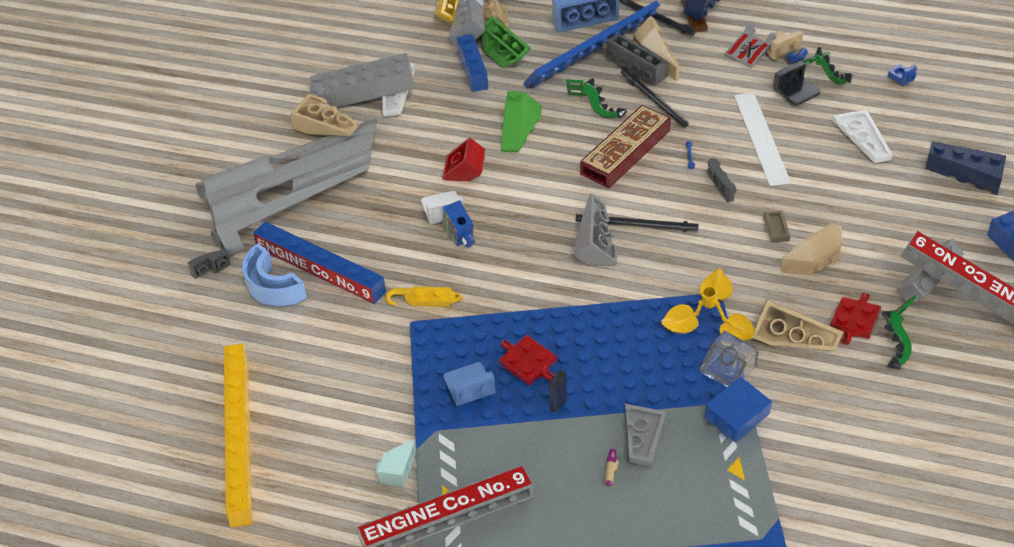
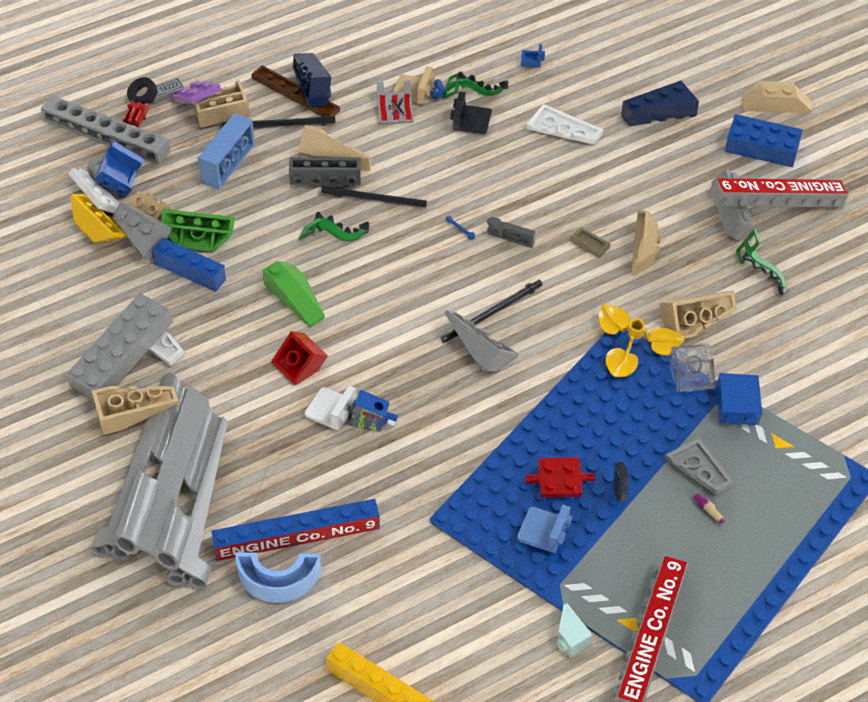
camera: 50 degrees left, 5 degrees up
(212, 261) = (202, 603): dark grey slope -> none
(425, 296) = (412, 491): yellow plate -> none
(594, 43) = (273, 183): blue plate -> none
(625, 146) = (408, 254): brick -> none
(762, 139) = (493, 177): white sticker -> none
(855, 318) = (721, 274): red plate -> none

